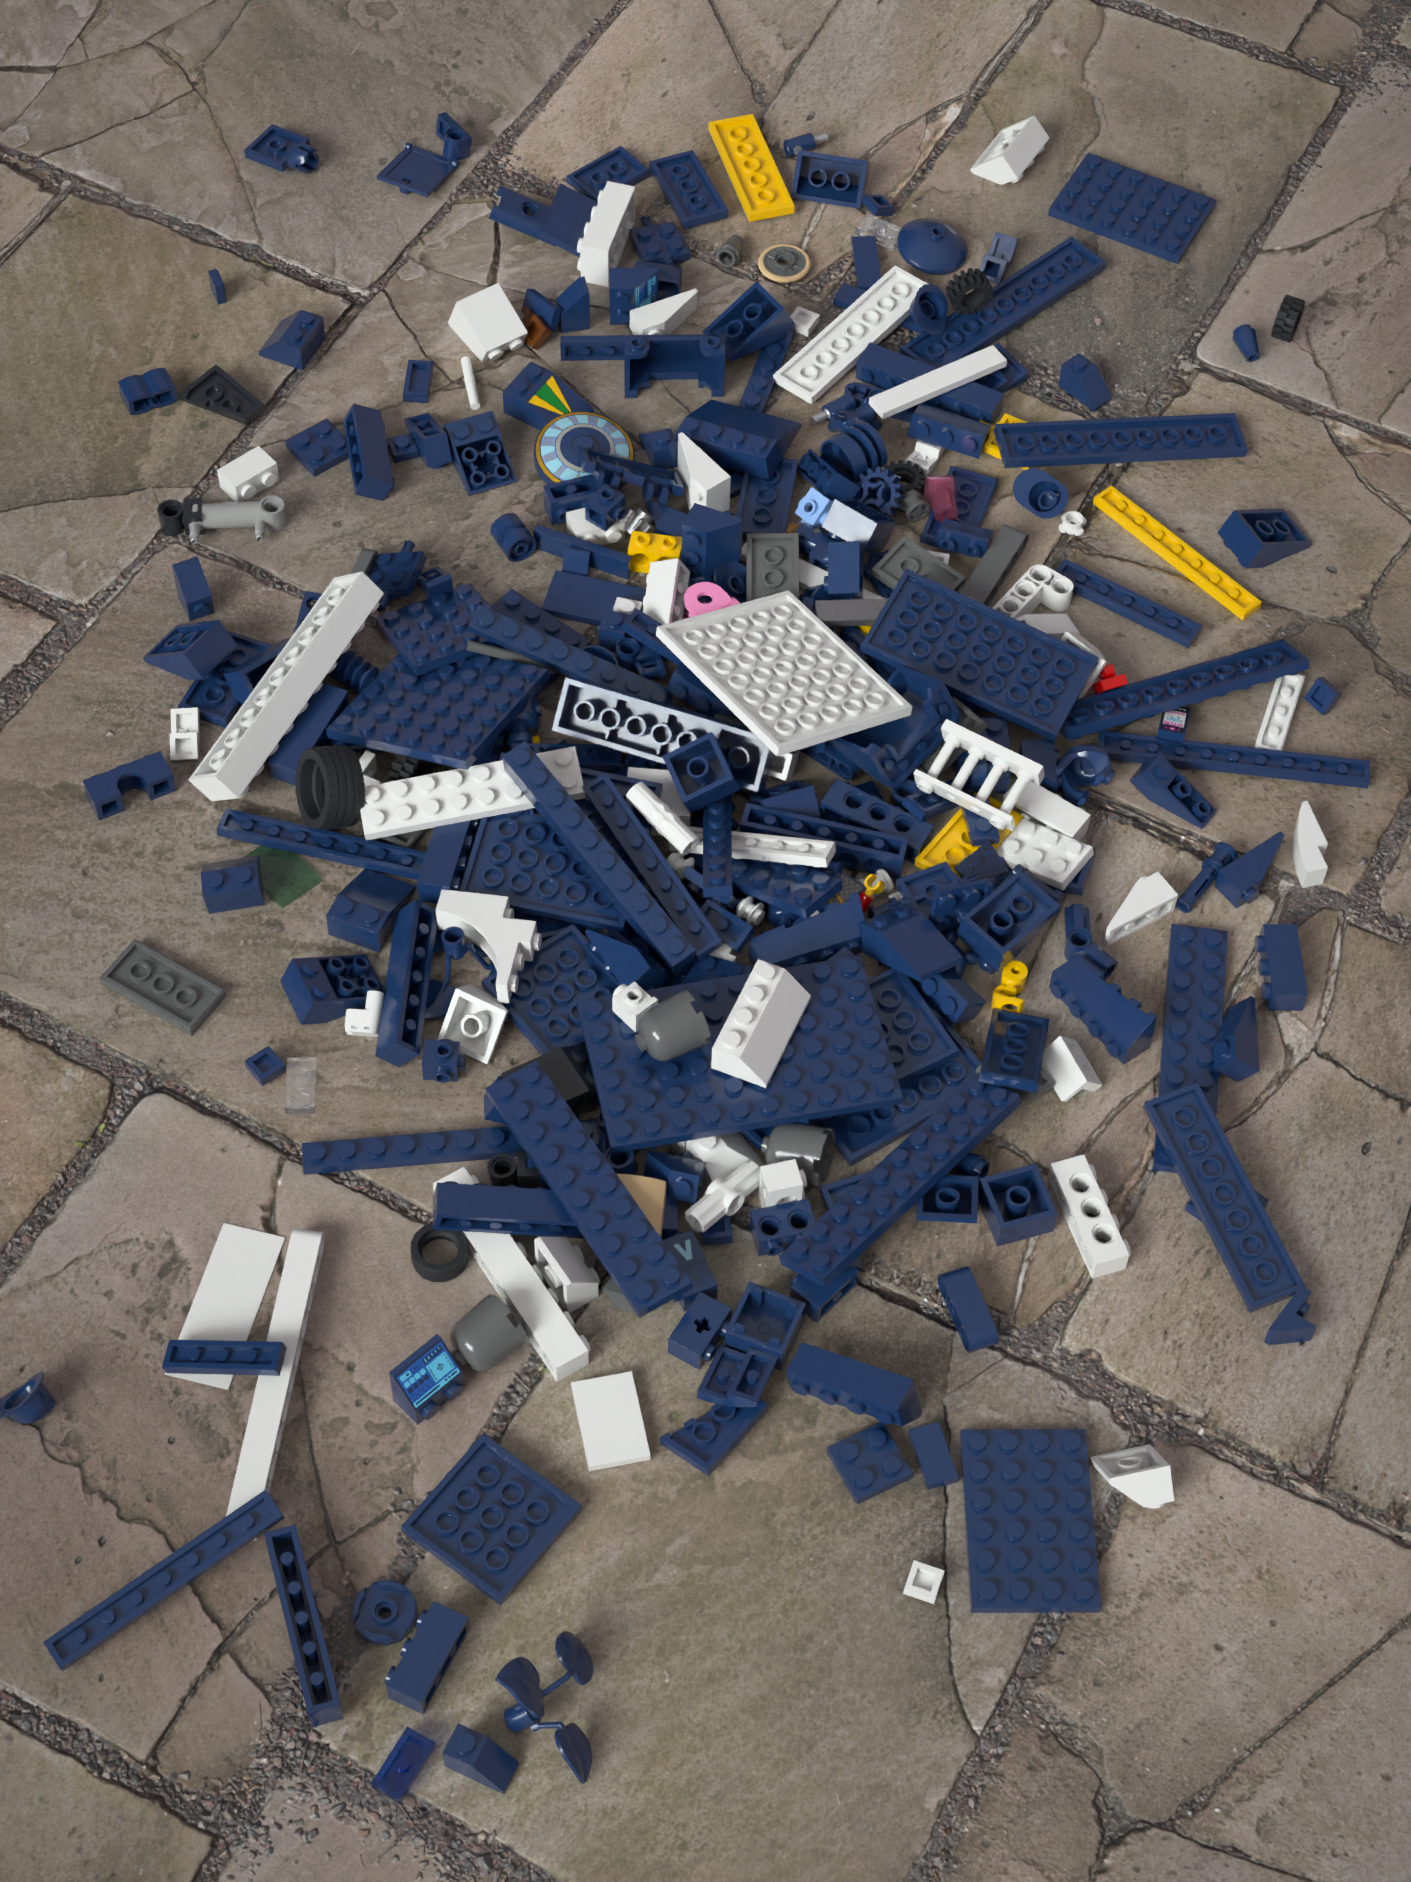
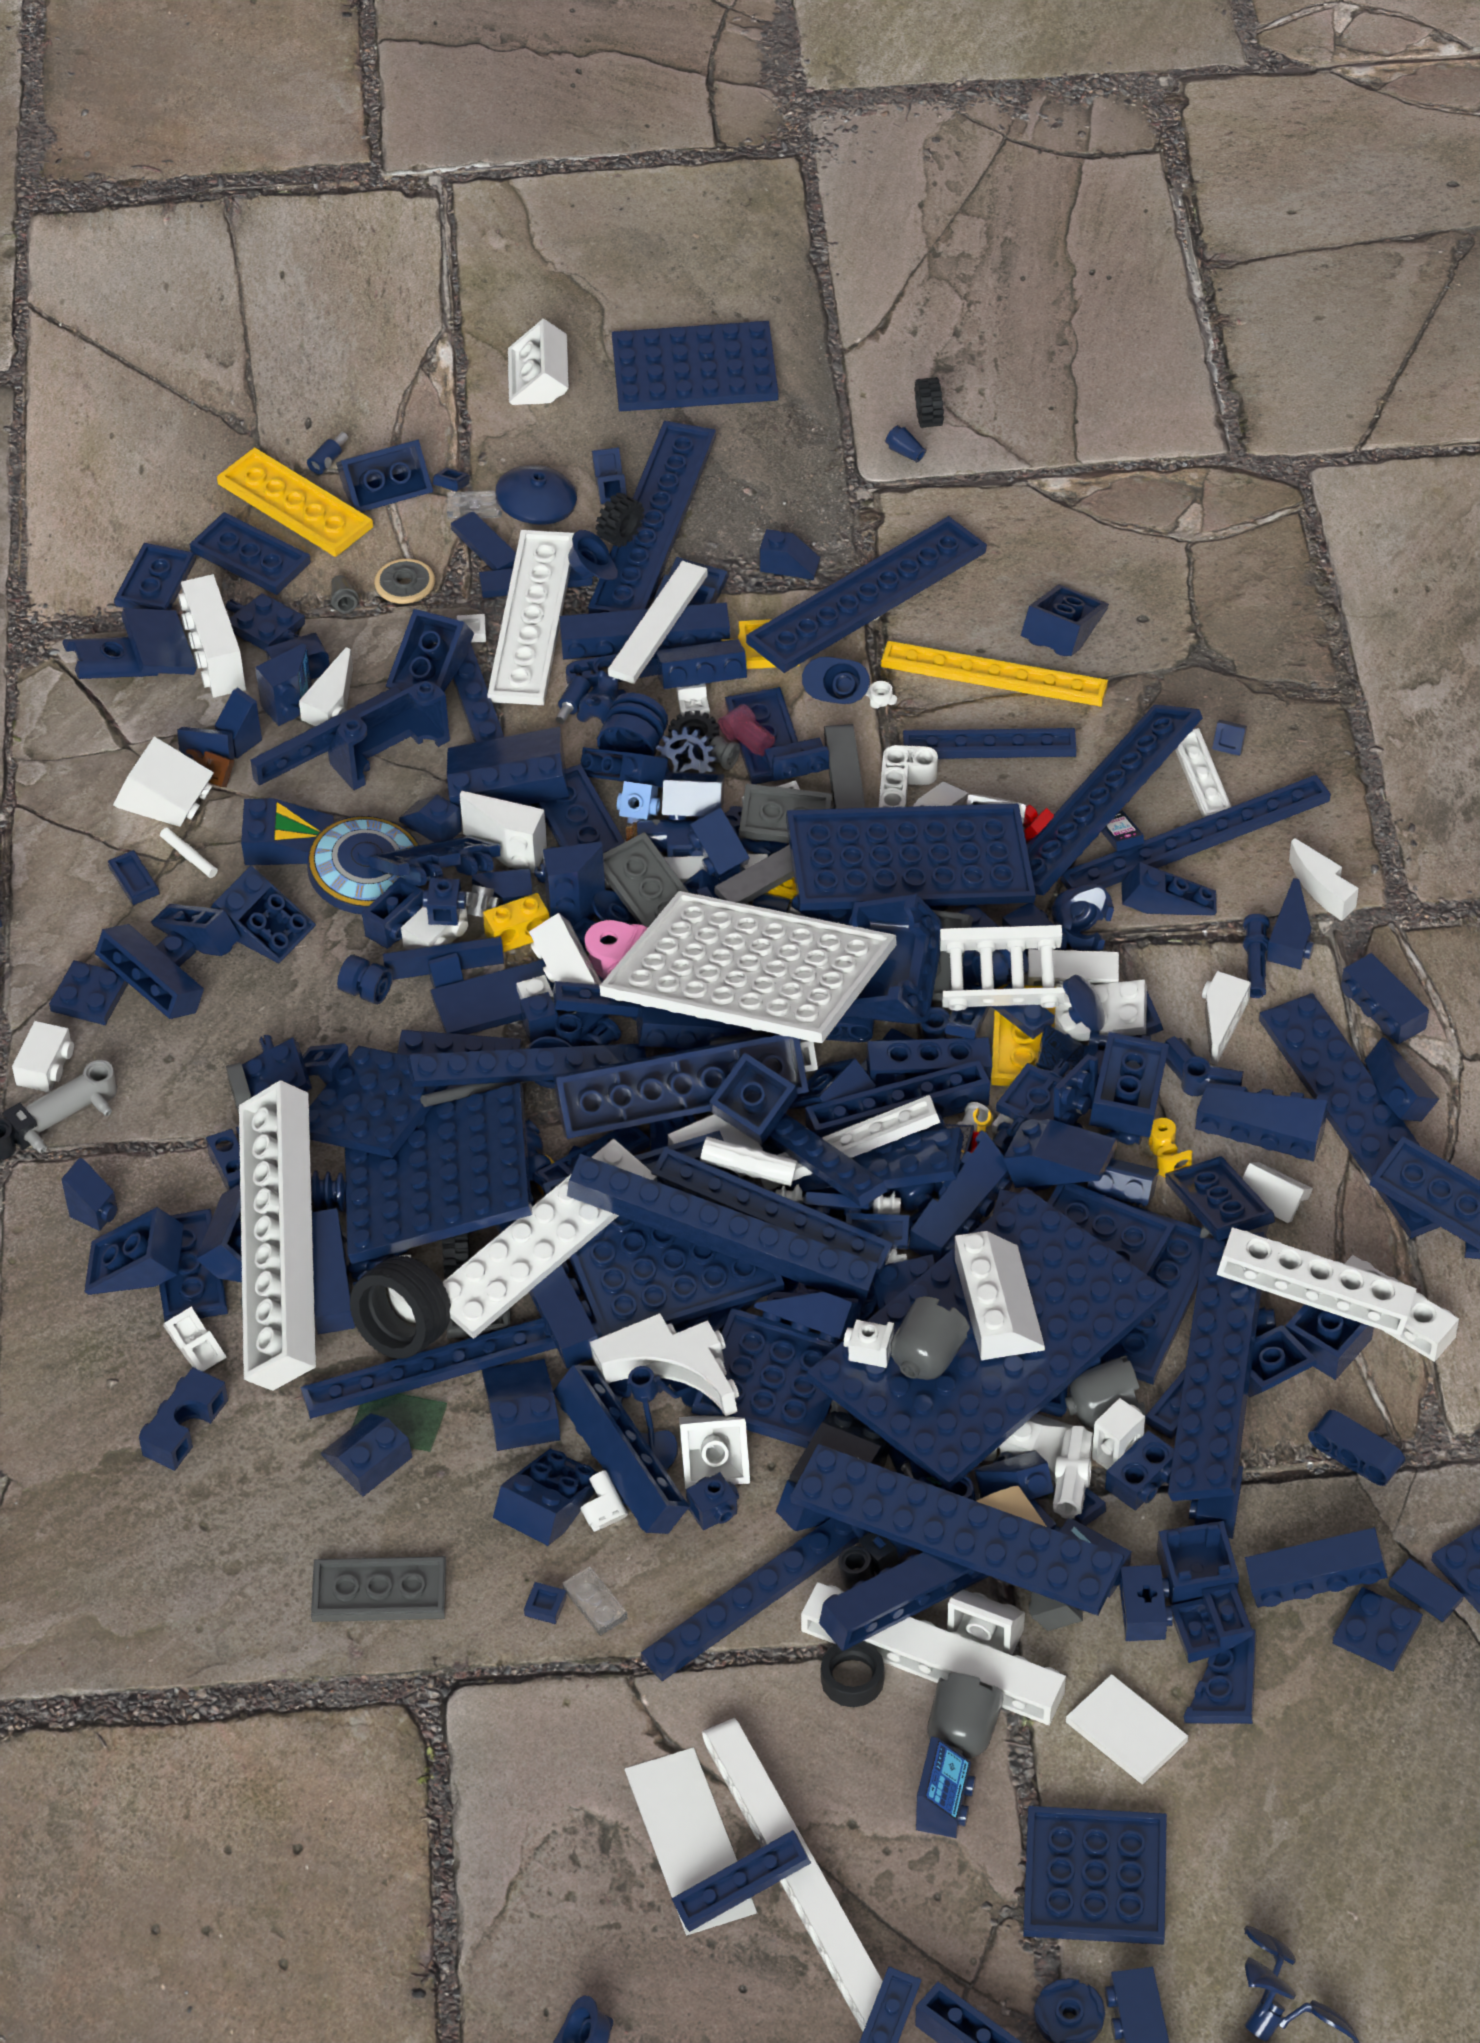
camera: 30 degrees left, 5 degrees down
(1023, 838) = (1084, 1003): none -> dark blue dish
(1025, 1171) = (1316, 1281): none -> white brick

